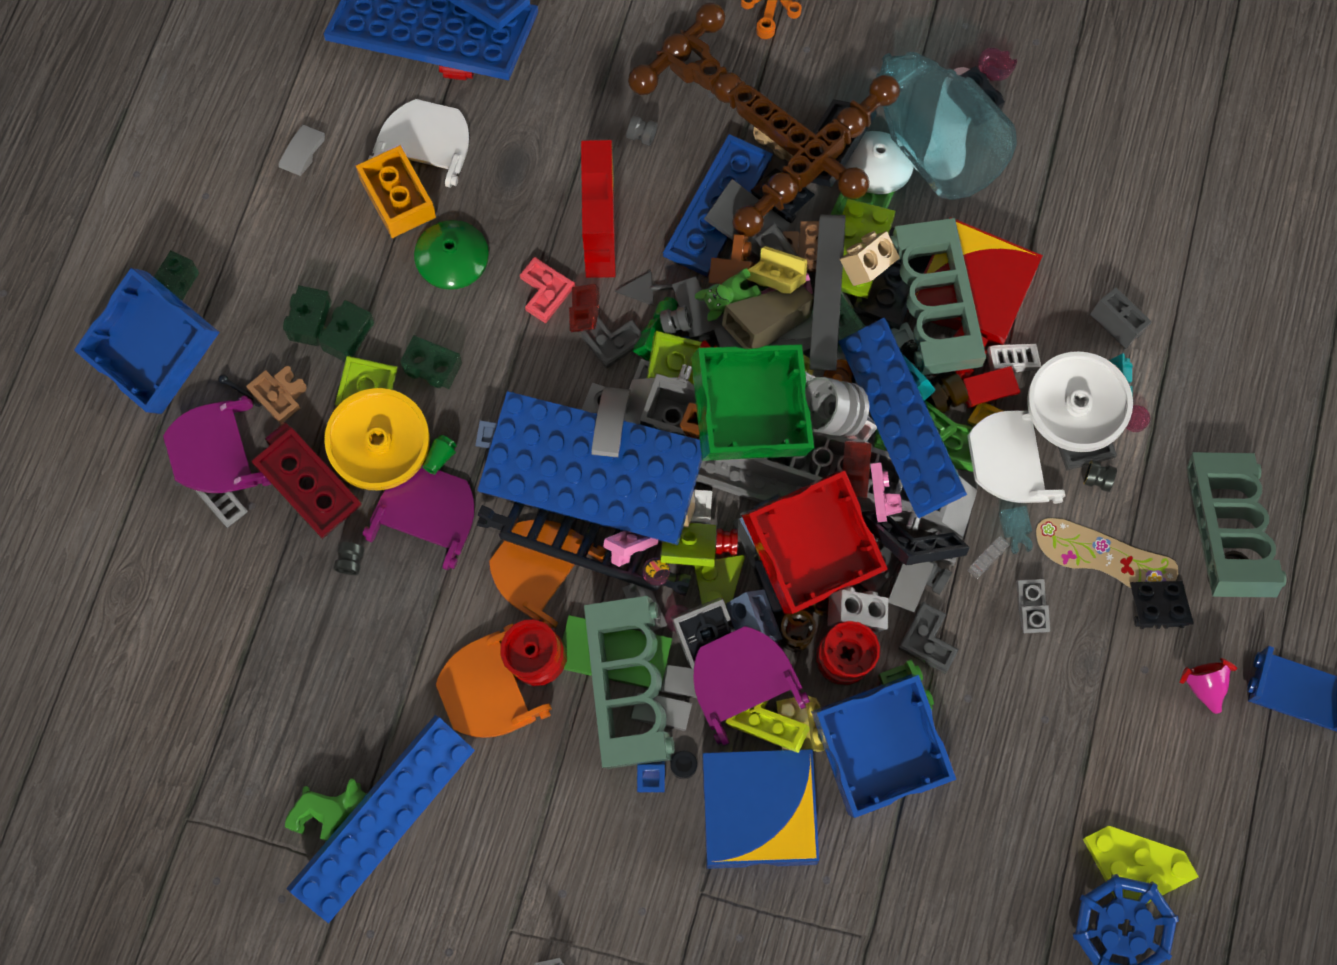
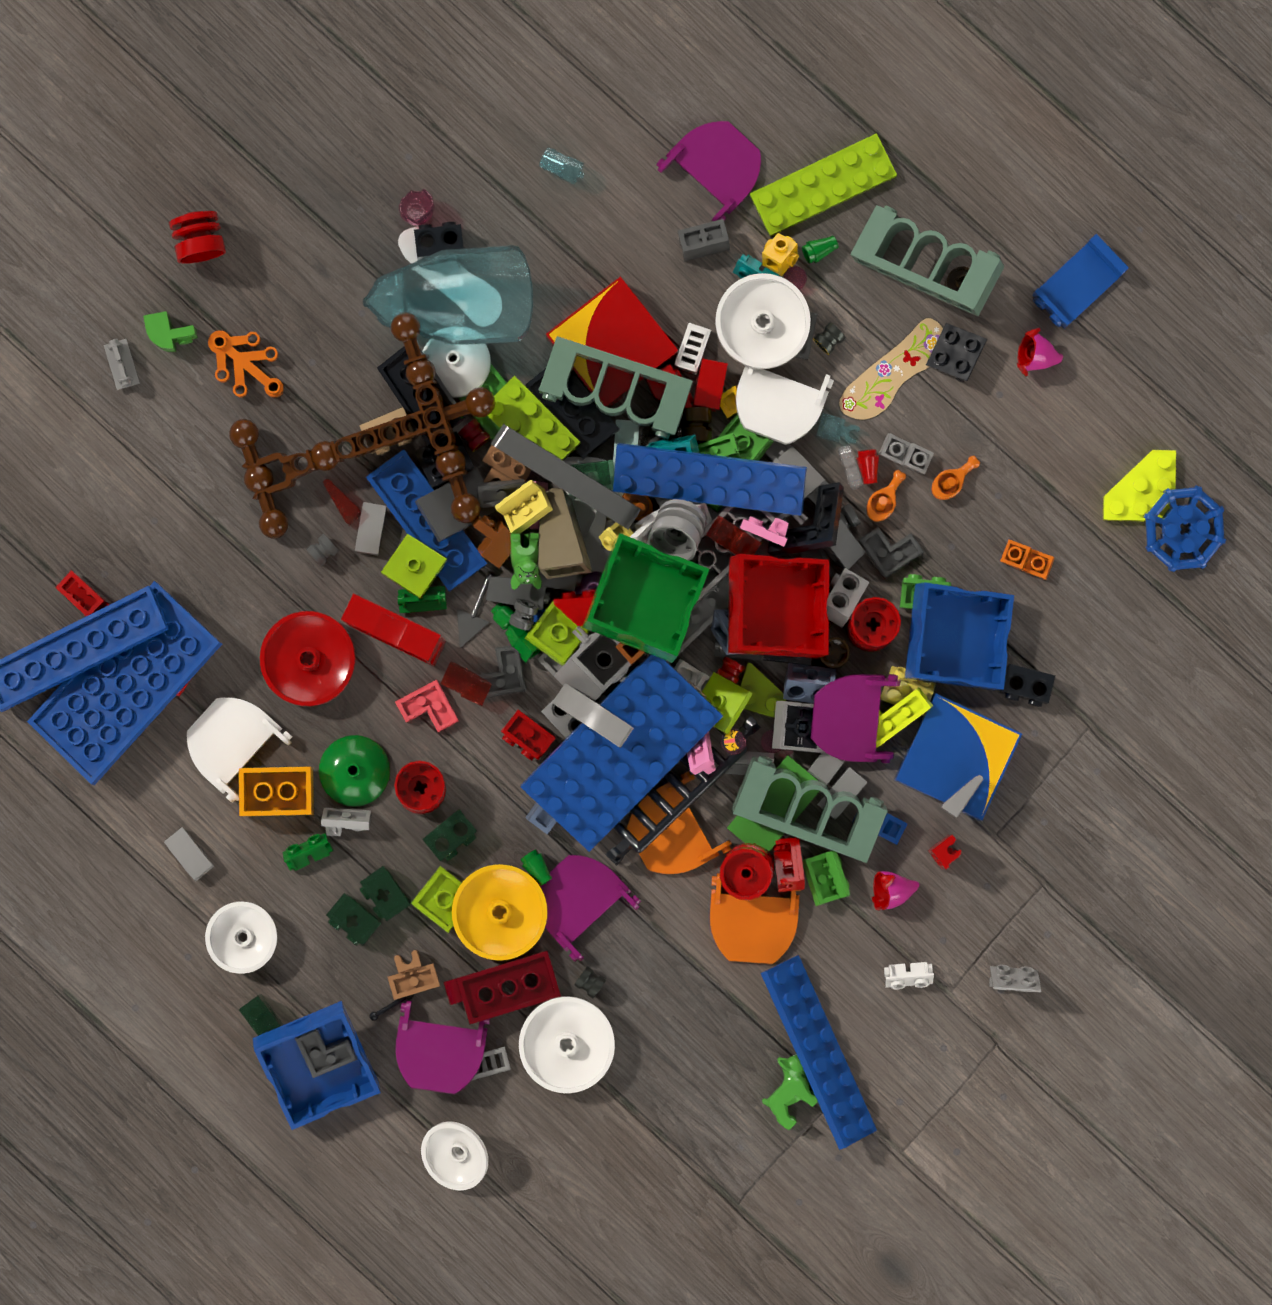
camera: 60 degrees left, 15 degrees up
(113, 511) = (447, 1162): none -> white dish
(157, 338) = (322, 1057): none -> dark grey tile
(239, 212) = (224, 942): none -> white dish
(274, 564) = (566, 1044): none -> white dish
(361, 251) = (316, 845): none -> green hinge
(397, 259) = (336, 819): none -> light grey hinge
(462, 298) = (407, 781): none -> red wheel
(499, 864) = (897, 977): none -> white hinge
(533, 161) = (307, 658): none -> red dish
(561, 693) = (789, 865): none -> red hinge
(563, 382) = (528, 735): none -> red bracket
(566, 736) = (826, 877): none -> bright green bracket
(588, 811) = (892, 890): none -> hat
(642, 235) = (432, 600): none -> green hinge
(652, 841) = (940, 852): none -> red hinge
(669, 208) = (414, 566): none -> lime plate
(683, 764) = (892, 797): black tile -> none
(684, 160) = (370, 528): none -> light grey slope
(691, 131) = (346, 507): none -> clear red slope
(717, 827) = (959, 800): none -> light grey slope
(821, 204) = (474, 435): none -> dark red wheel
(869, 257) = (556, 426): tan brick -> none
(879, 843) = (1028, 678): none -> black brick
(974, 606) = (883, 501): none -> orange piece
(998, 780) = (1027, 559): none -> orange slope
(1000, 574) = (868, 465): none -> red cone
(1032, 662) = (950, 482): none -> orange piece
(1110, 165) = (561, 165): none -> clear light blue piece
(1151, 389) = (780, 254): none -> yellow brick
(1177, 425) = (819, 248): none -> green cone
(1201, 298) = (719, 161): none -> magenta piece
(1240, 402) = (823, 185): none -> lime plate

